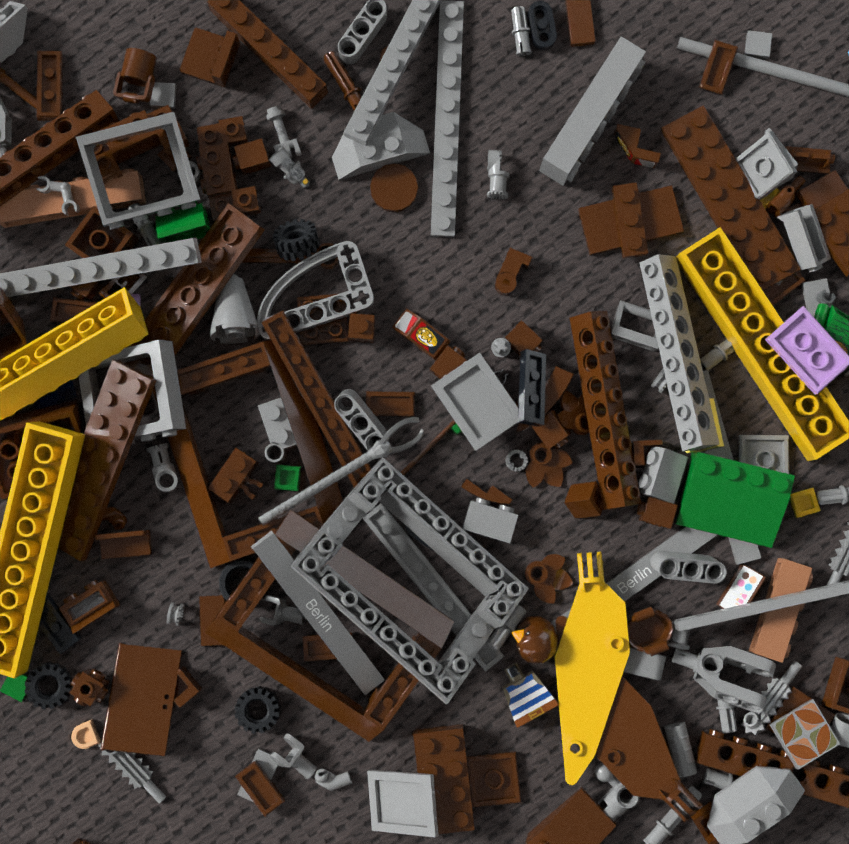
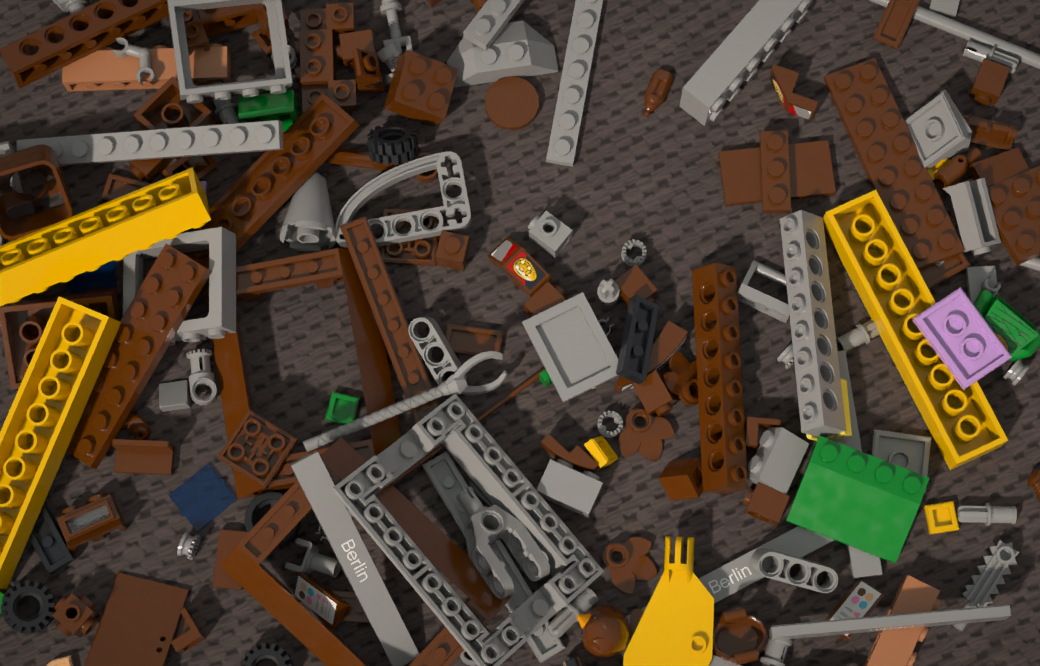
camera: 10 degrees right, 10 degrees down
(141, 486) = (174, 396): none -> light grey slope
(180, 570) = (202, 497): none -> clear blue piece
(220, 528) = (257, 449): none -> reddish brown tile
(234, 476) = (282, 396): reddish brown brick -> none
(264, 178) = (367, 72): none -> reddish brown slope
(277, 427) = (340, 350): light grey hinge -> none
(293, 645) = (320, 599): none -> slope
(313, 186) = (421, 88): none -> reddish brown brick
(442, 301) = (549, 233): none -> light grey brick
(449, 569) = (514, 536): none -> light grey piece
(498, 178) = (630, 105): light grey connector -> none
(506, 279) = (630, 210): reddish brown leg -> none
(511, 302) = (628, 246): none -> light grey bush
(512, 486) = (601, 451): none -> yellow tile
(518, 159) = (657, 90): none -> reddish brown piece
(804, 91) = (990, 54): none -> light grey axle
(804, 115) = (988, 82): none -> reddish brown brick

